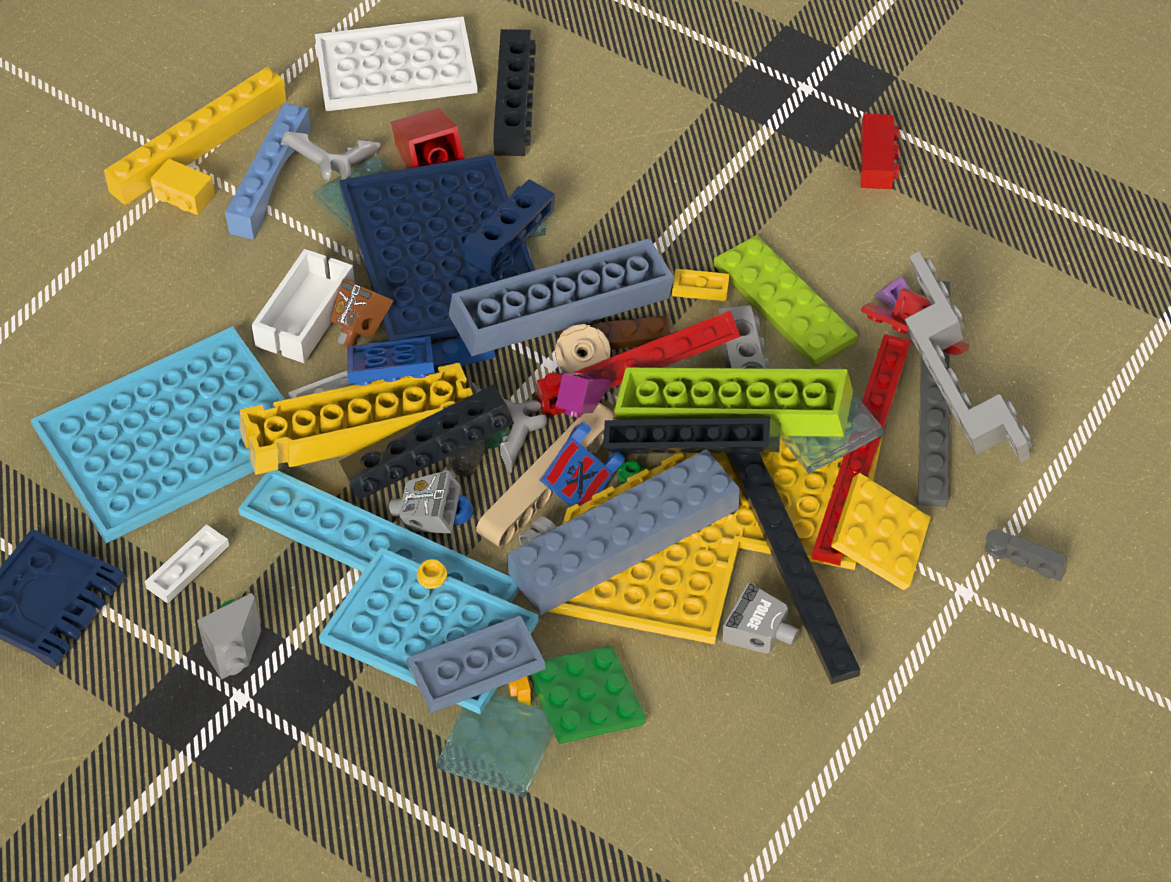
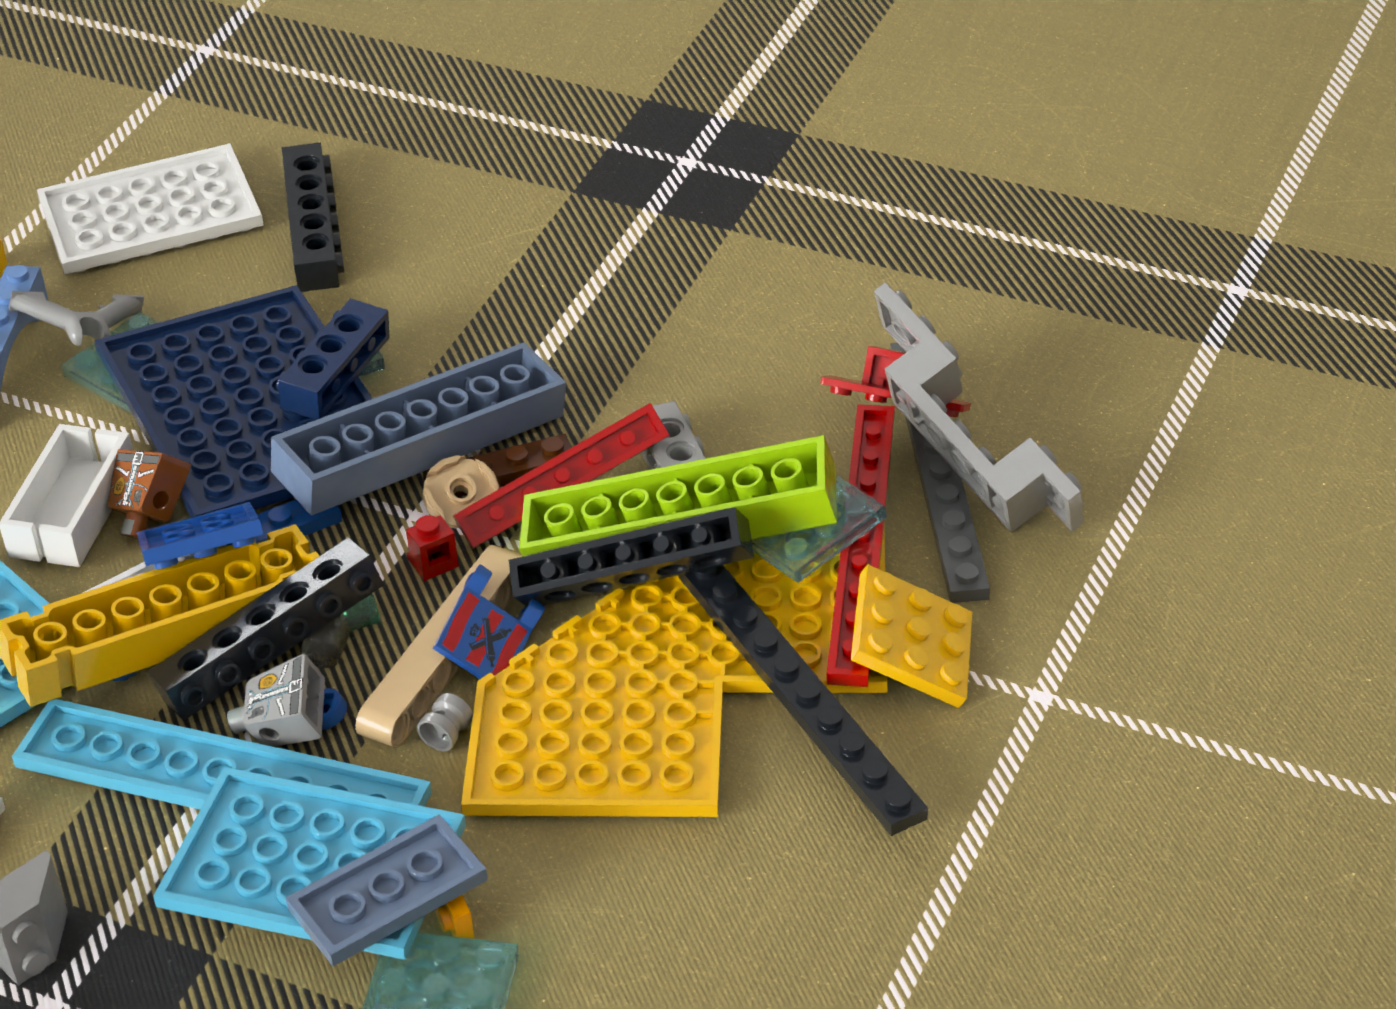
camera: 10 degrees left, 10 degrees down
(427, 139) = (205, 279): red slope -> none
(431, 574) = (303, 785): yellow plate -> none
(520, 429) = (394, 593): light grey piece -> none
(580, 393) = (468, 533): magenta slope -> none
(587, 695) = (552, 910): green plate -> none
(623, 532) = (559, 693): sand blue brick -> none
(626, 467) = (551, 621): green plate -> none
(700, 285) = (602, 392): yellow plate -> none
(758, 622) = (772, 776): light grey torso -> none
(785, 300) = (715, 392): lime plate -> none
(878, 151) = (797, 212): red brick -> none
(890, 293) = (853, 364): medium lavender slope -> none
(1026, 553) = (1111, 633): dark grey hinge -> none

